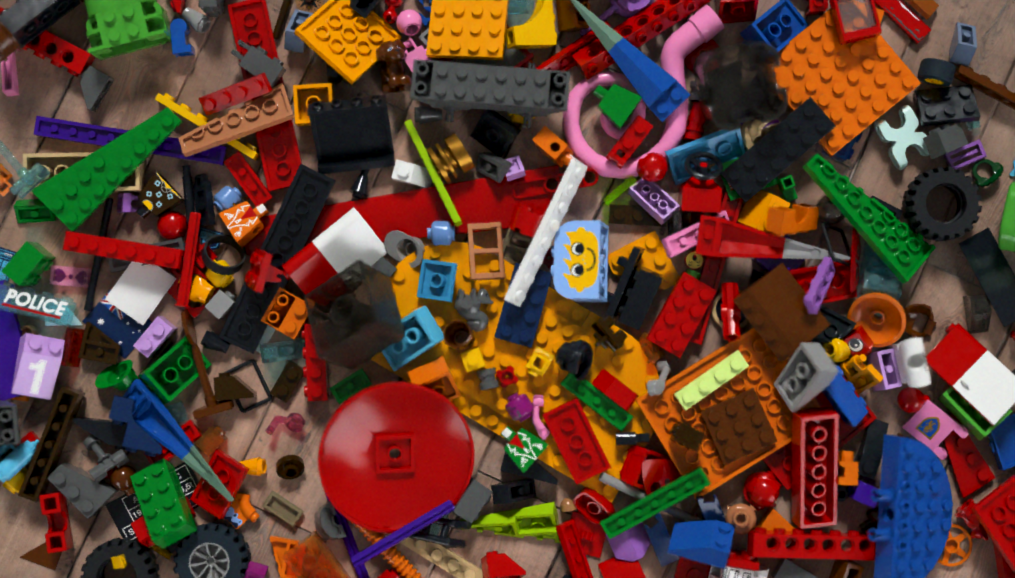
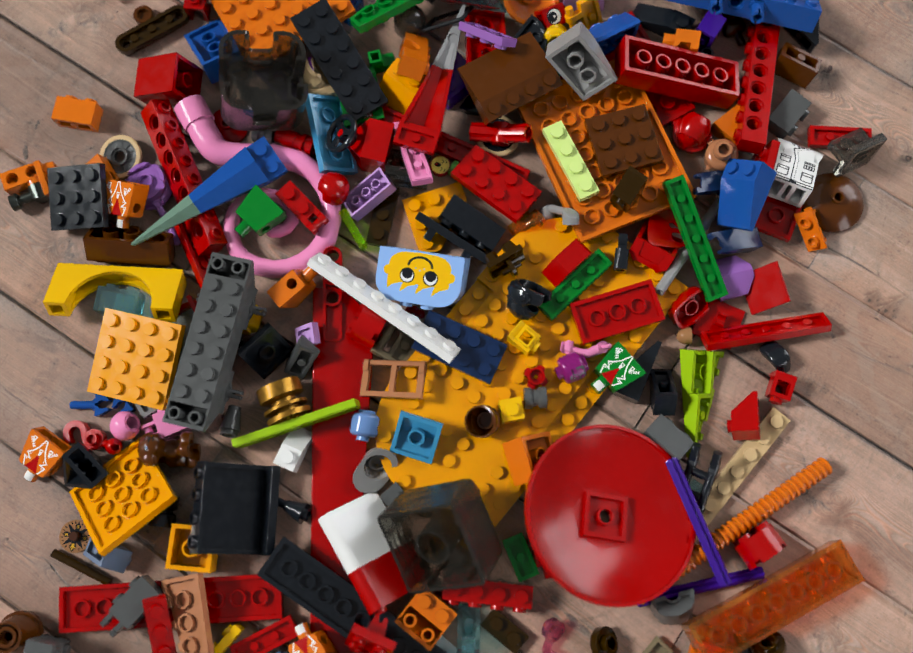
camera: 80 degrees left, 10 degrees down
(420, 336) = (476, 463): medium azure slope -> none
(469, 306) = (451, 406): dark grey animal -> none

